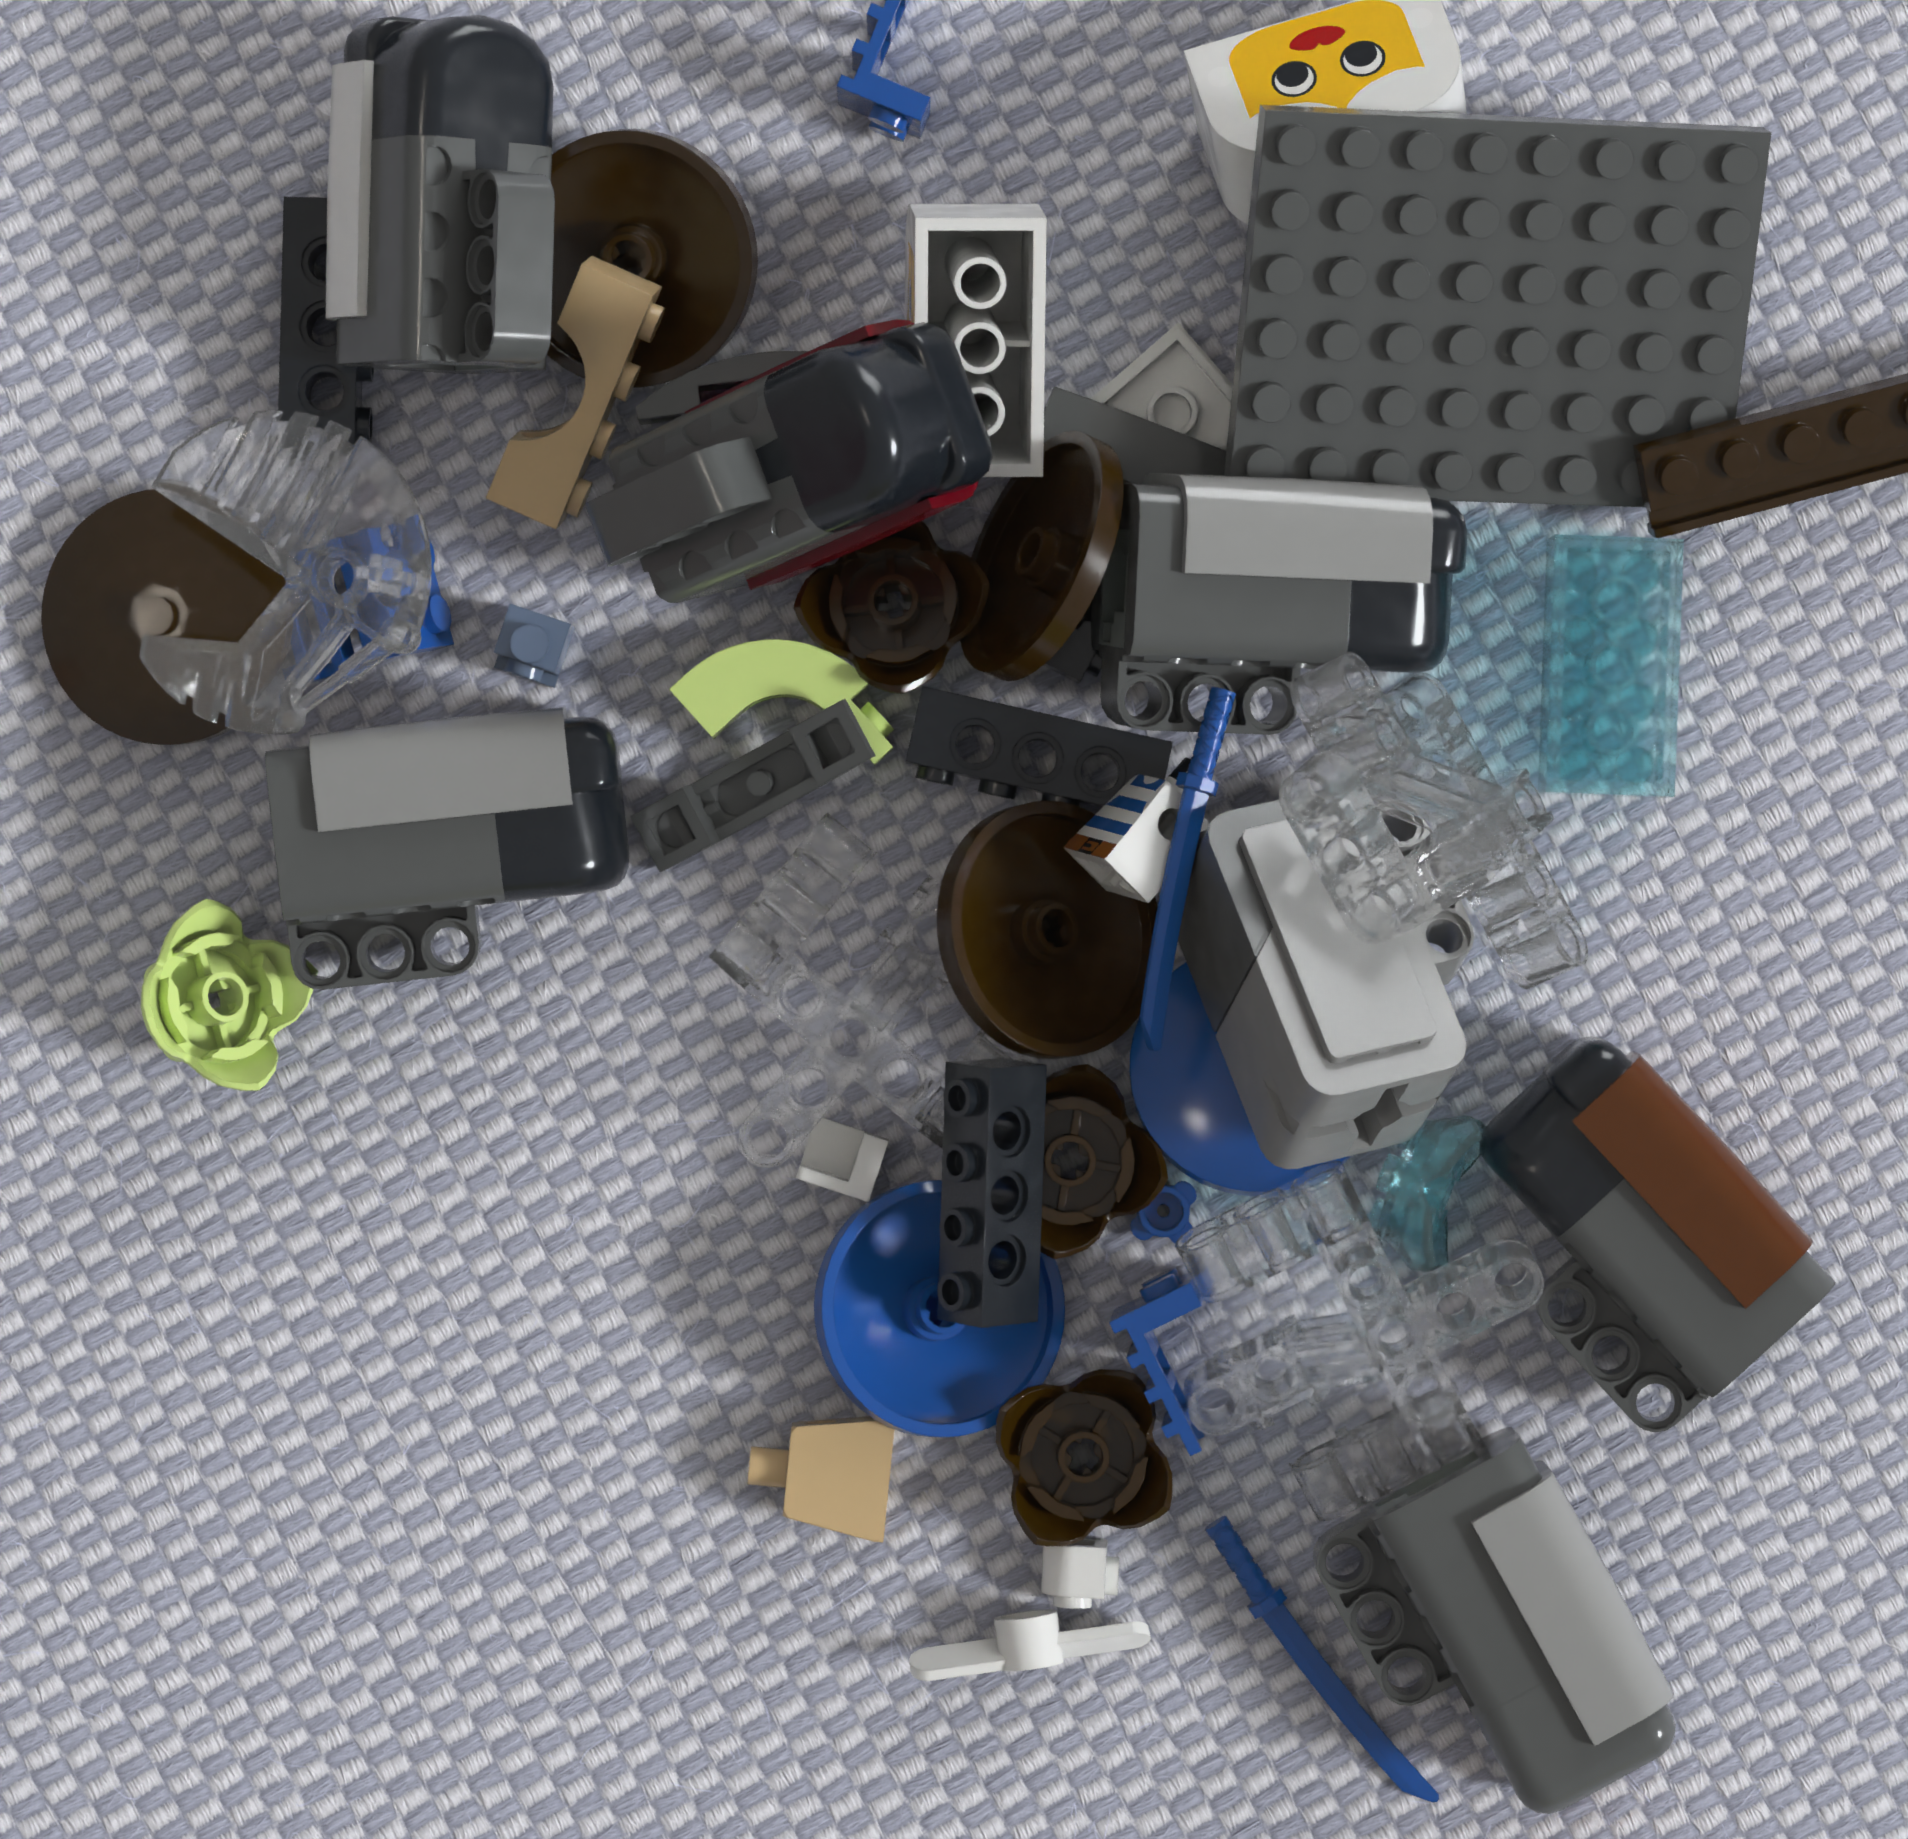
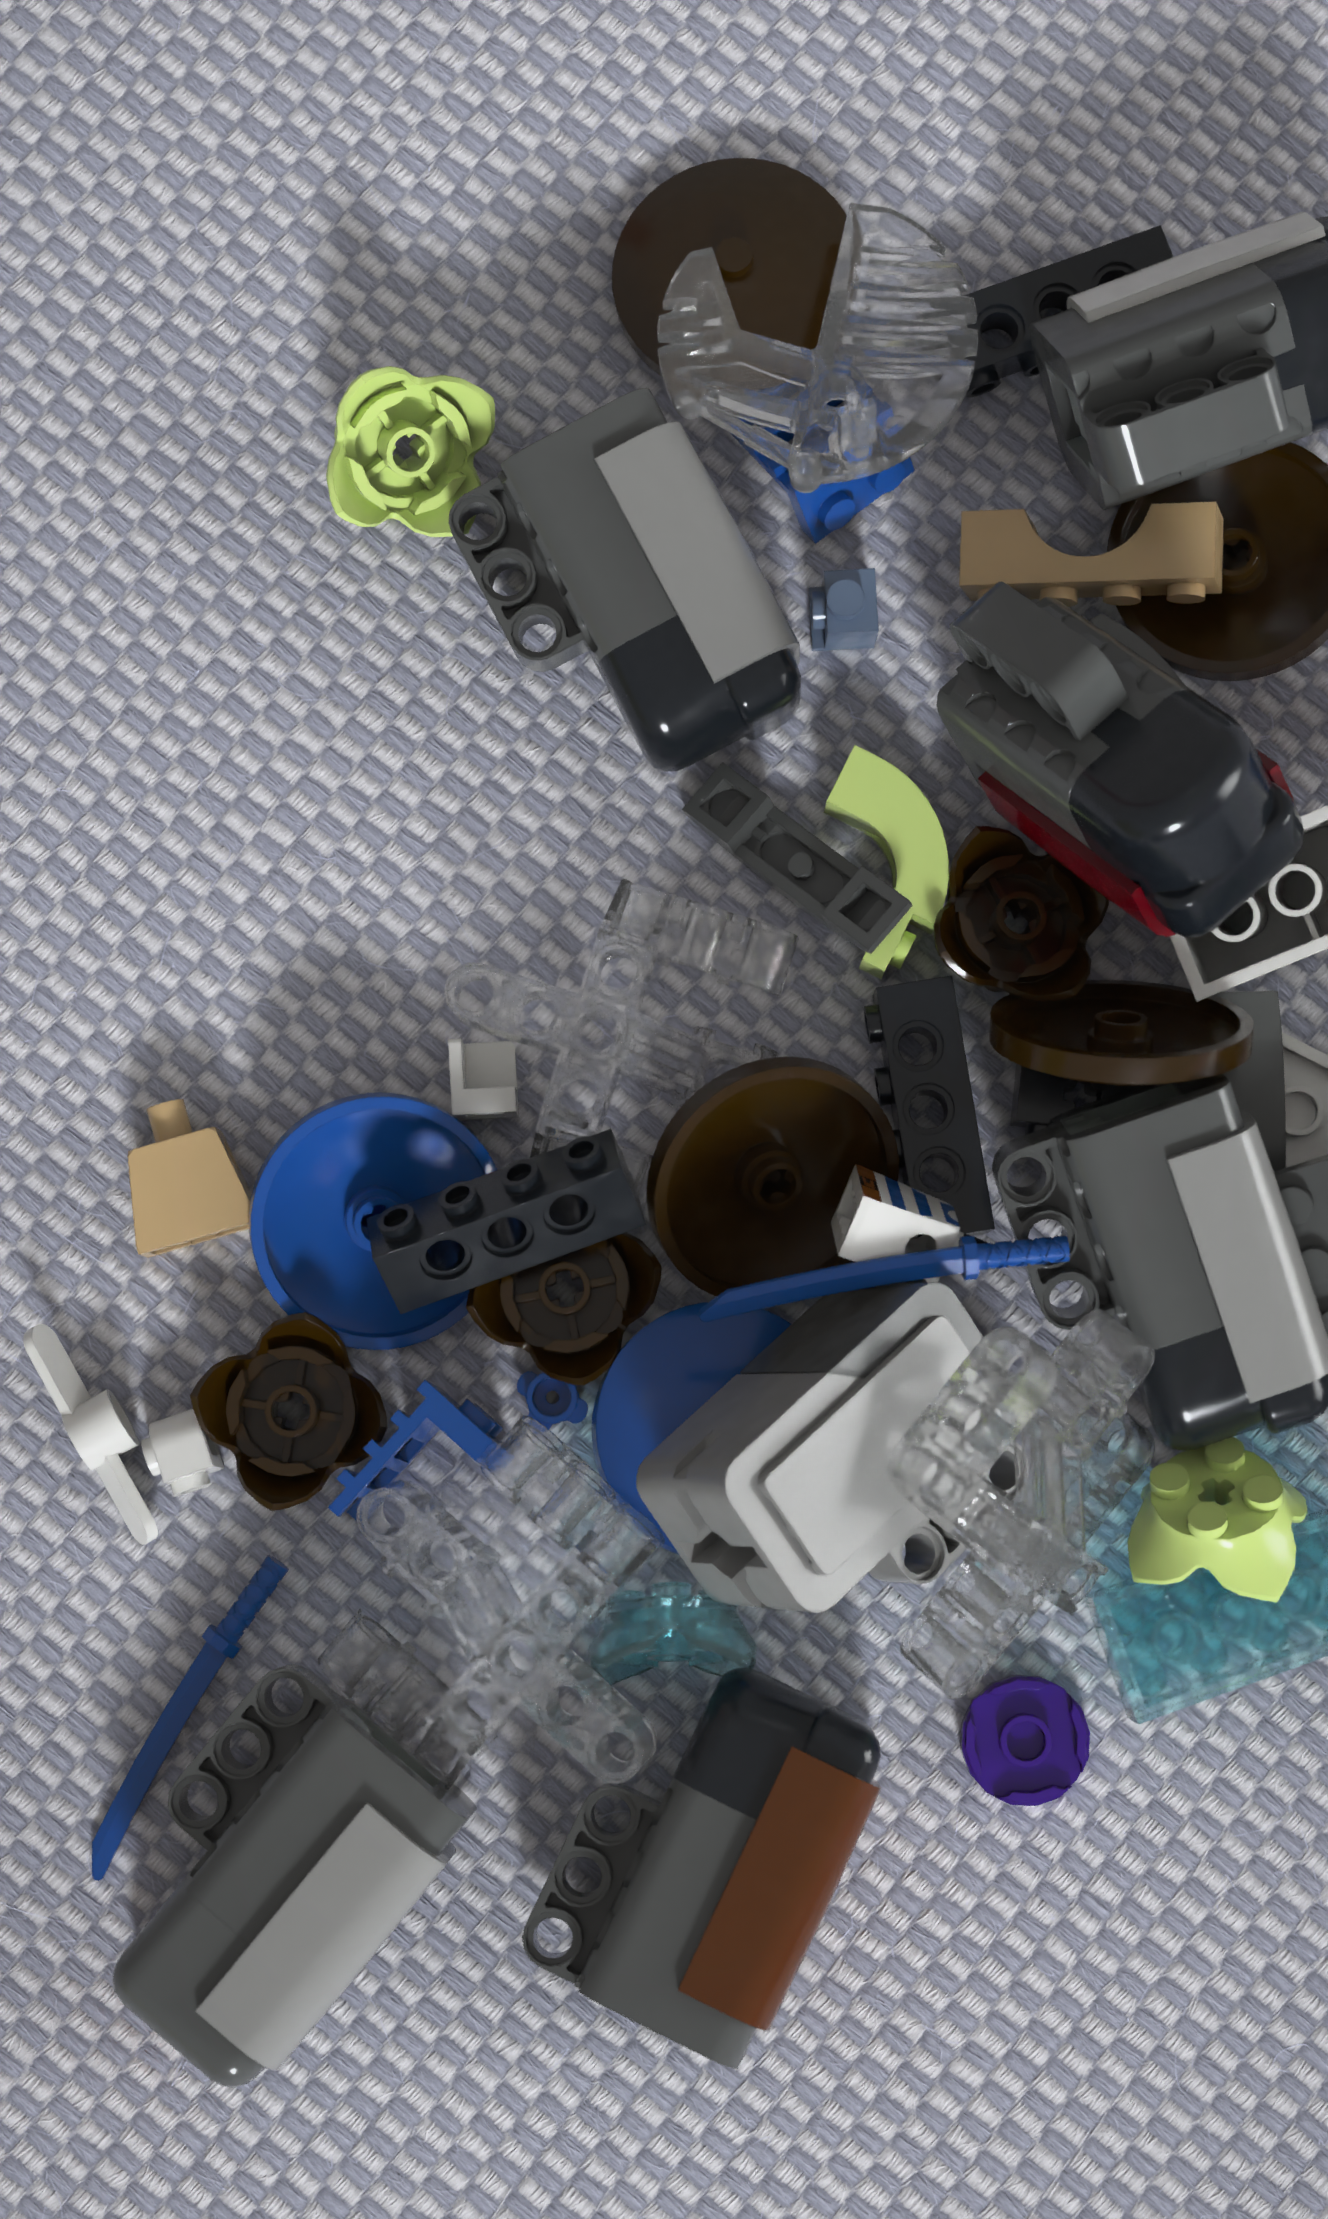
camera: 80 degrees right, 5 degrees down
(1517, 644) = (1219, 1514): none -> yellowish green brick
(1647, 900) = (1024, 1740): none -> dark purple tile

